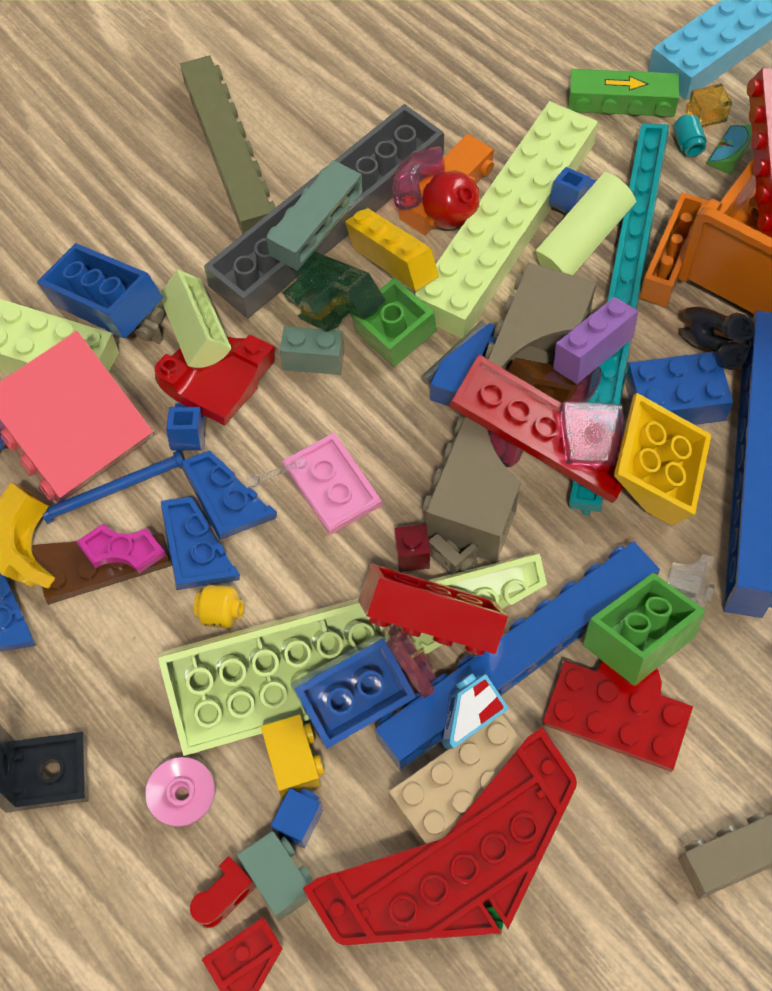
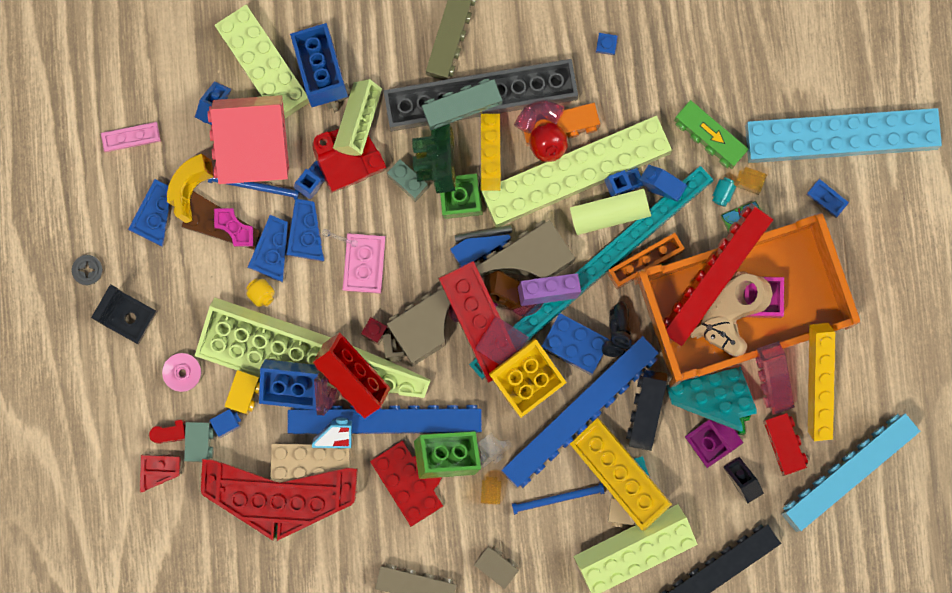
camera: 35 degrees right, 20 degrees up
(428, 86) = (606, 44): none -> blue plate
(619, 158) = (662, 183): none -> blue slope
(737, 640) = (491, 491): none -> clear yellow brick

